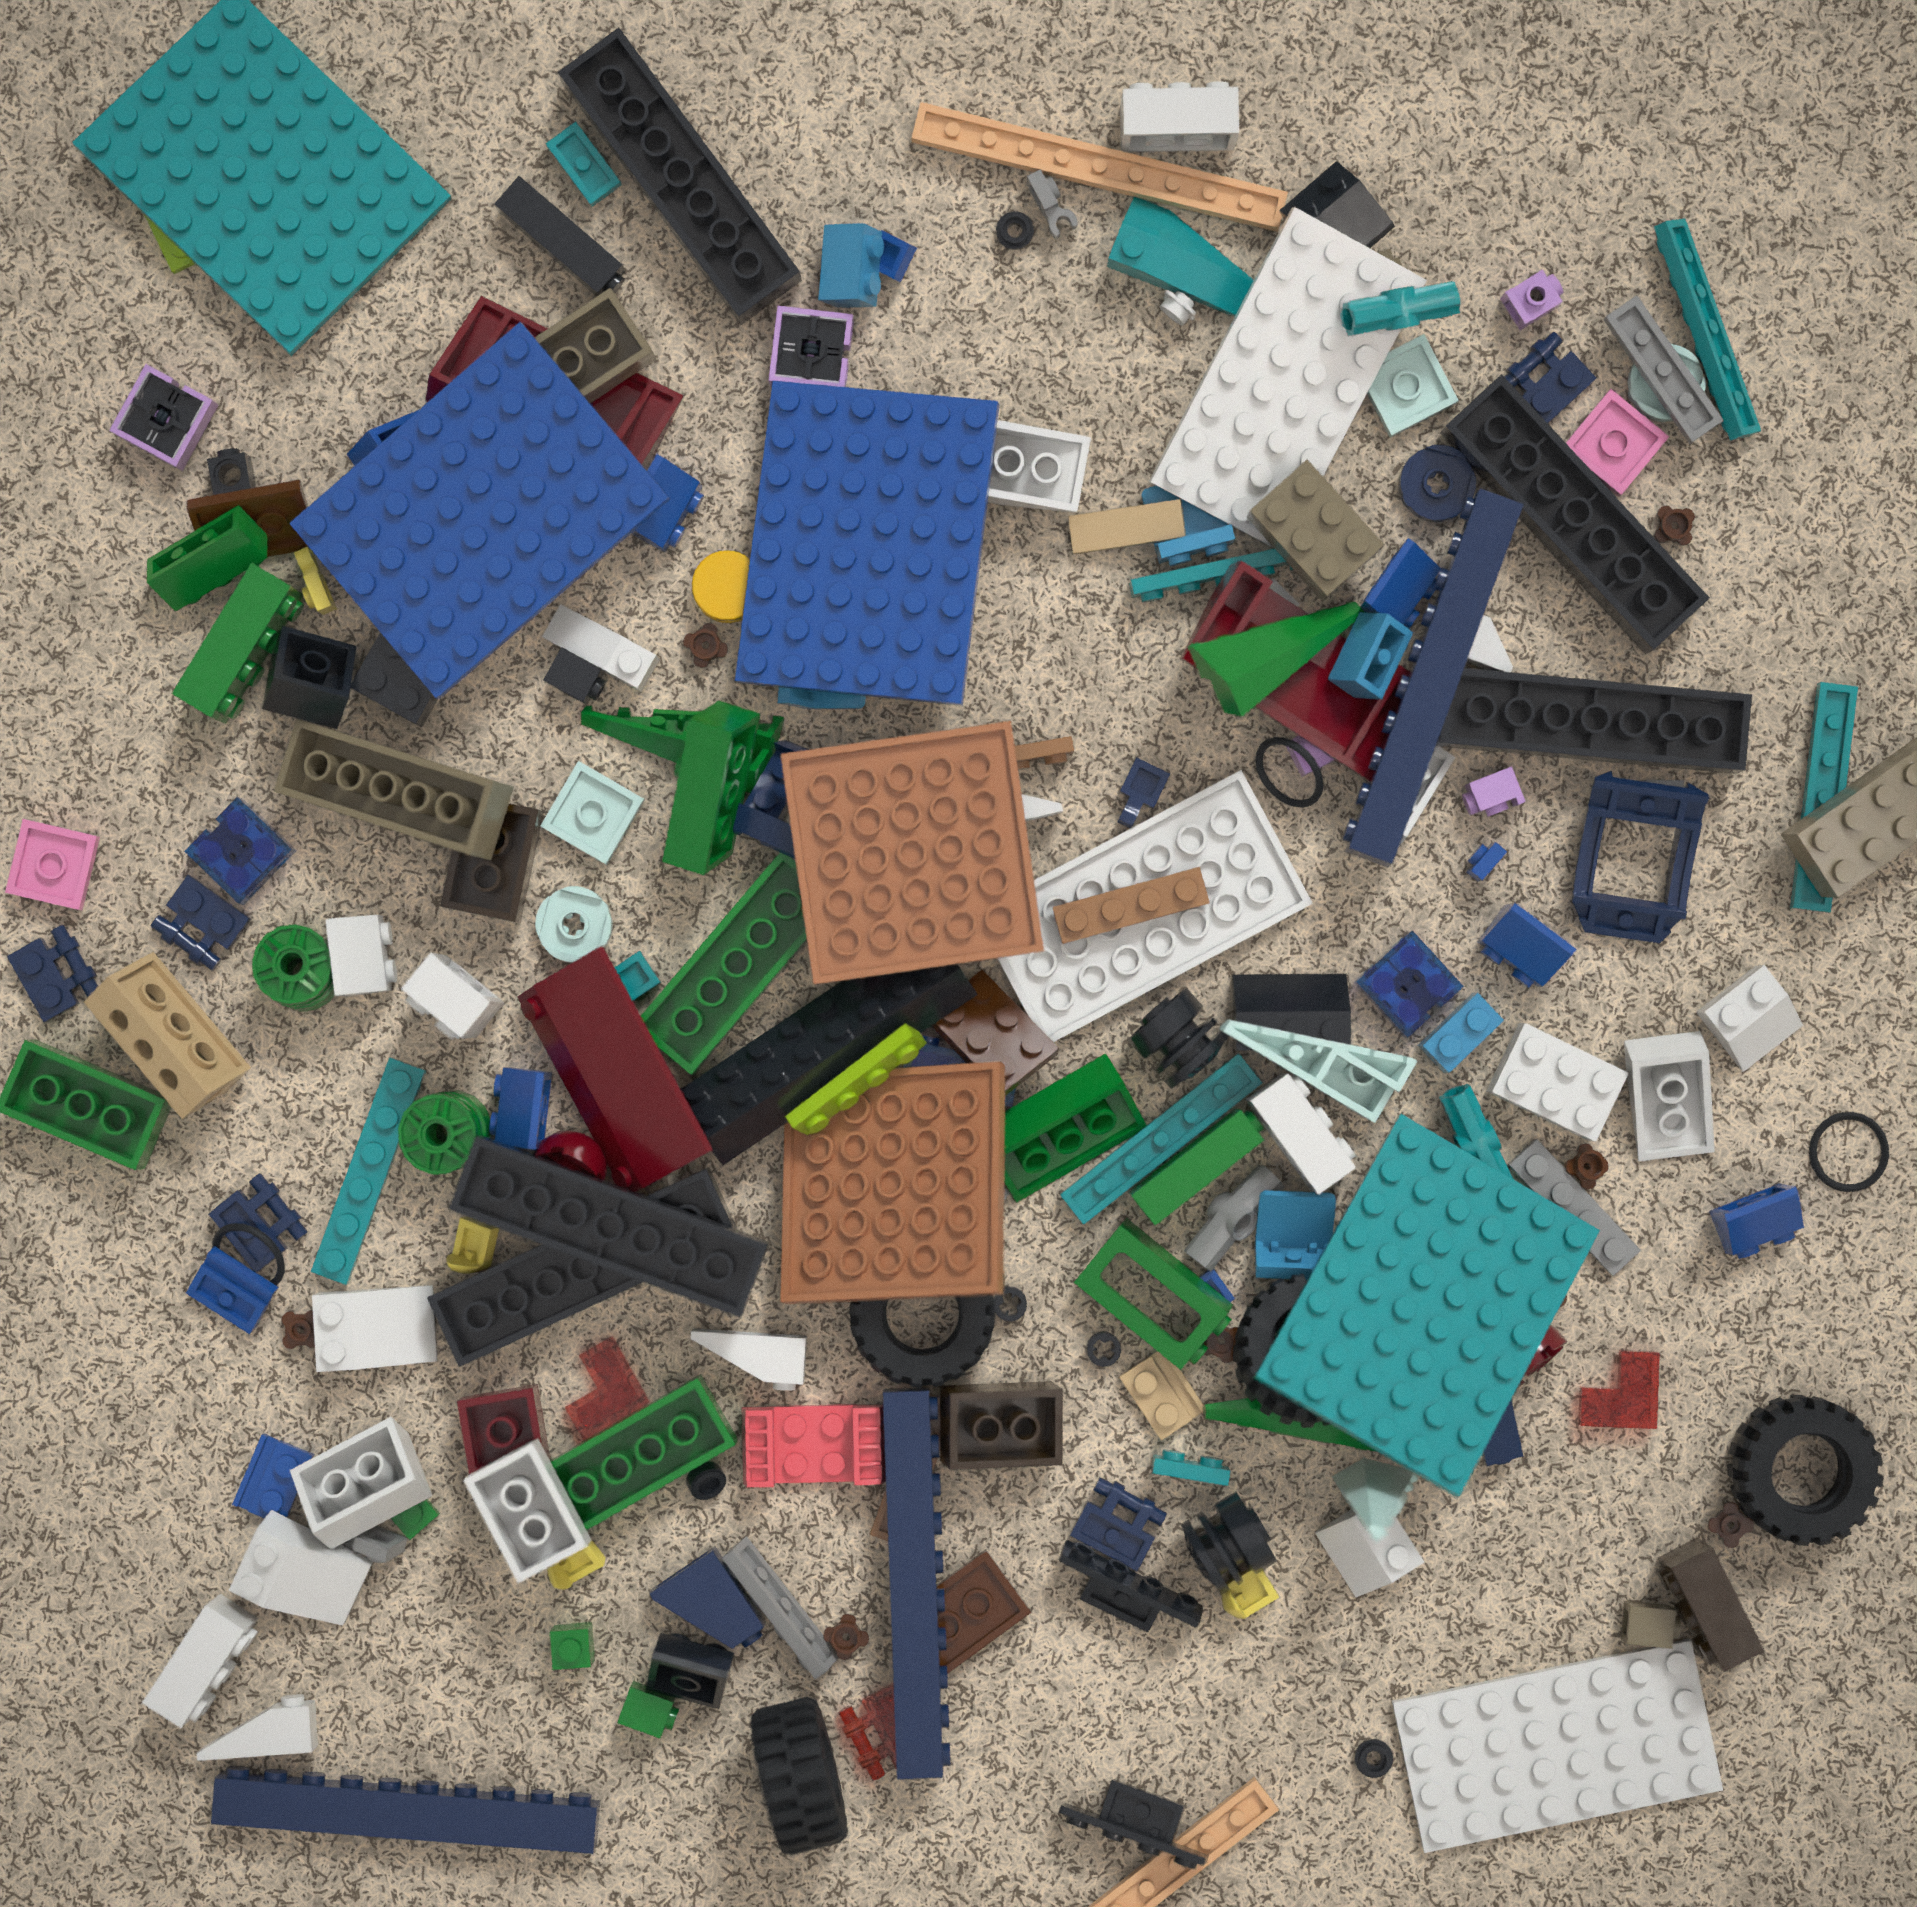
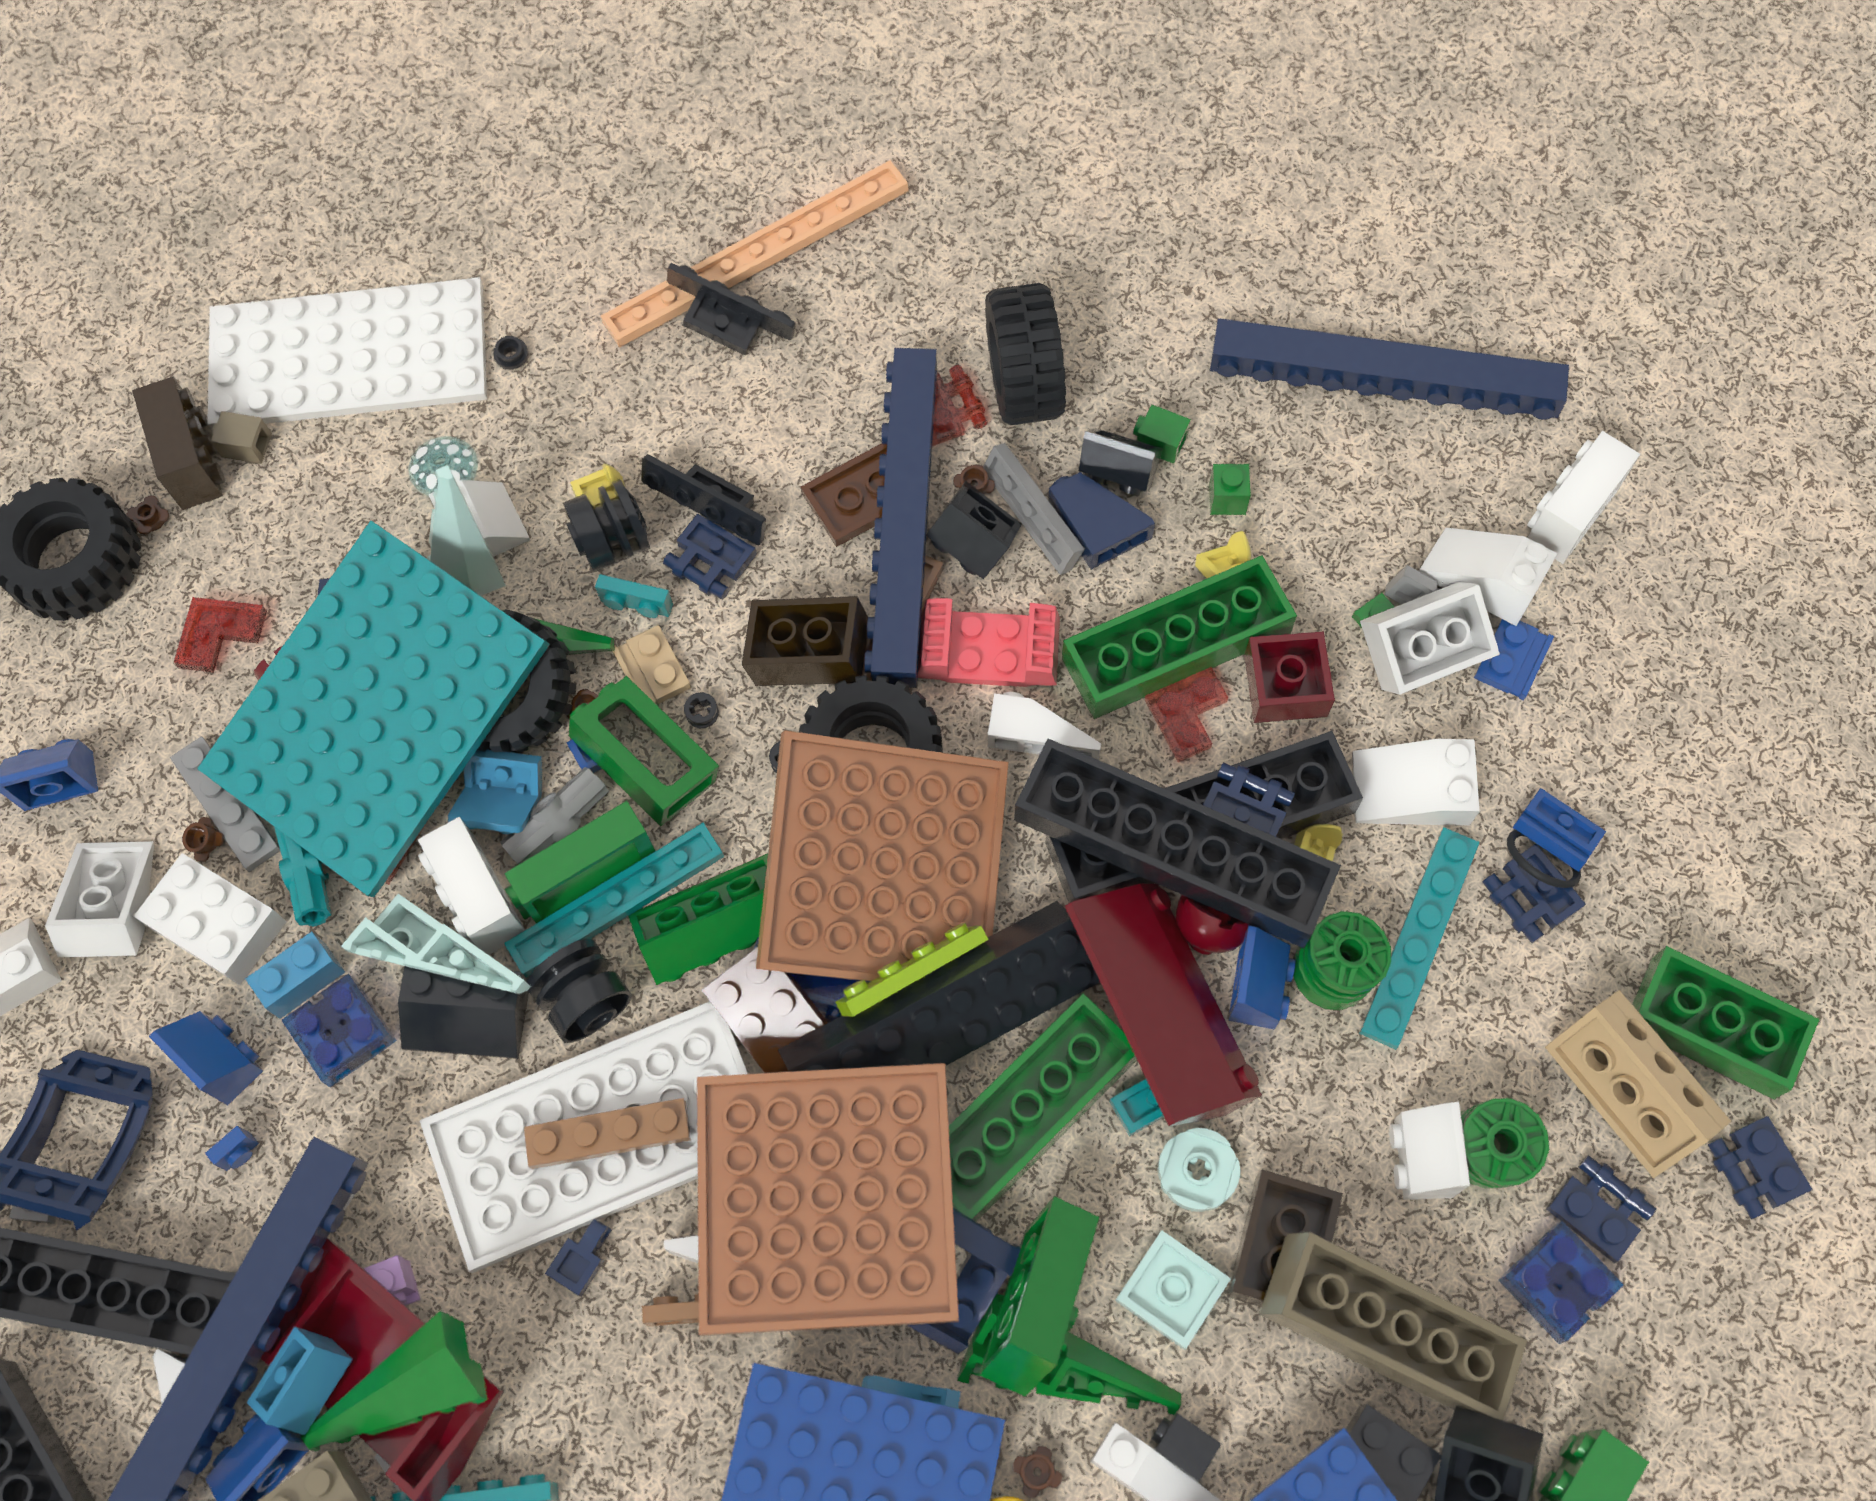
camera: 175 degrees left, 20 degrees down
(52, 864) = (1768, 1286): bright pink plate -> none
(278, 1730) = (1510, 440): white slope -> none
(292, 1336) = (1496, 782): reddish brown plate -> none
(451, 996) = (1331, 1092): white brick -> none
(527, 1510) = (1268, 588): white brick -> none
(545, 1266) = (1247, 809): none -> dark blue plate
(706, 1481) = (1093, 617): black tile -> none
(838, 1573) = (974, 531): none -> black slope
(1309, 759) = (396, 1281): black tyre -> none
(1411, 1598) = (457, 455): none -> clear light blue dish
(1492, 793) = (209, 1222): lavender brick -> none

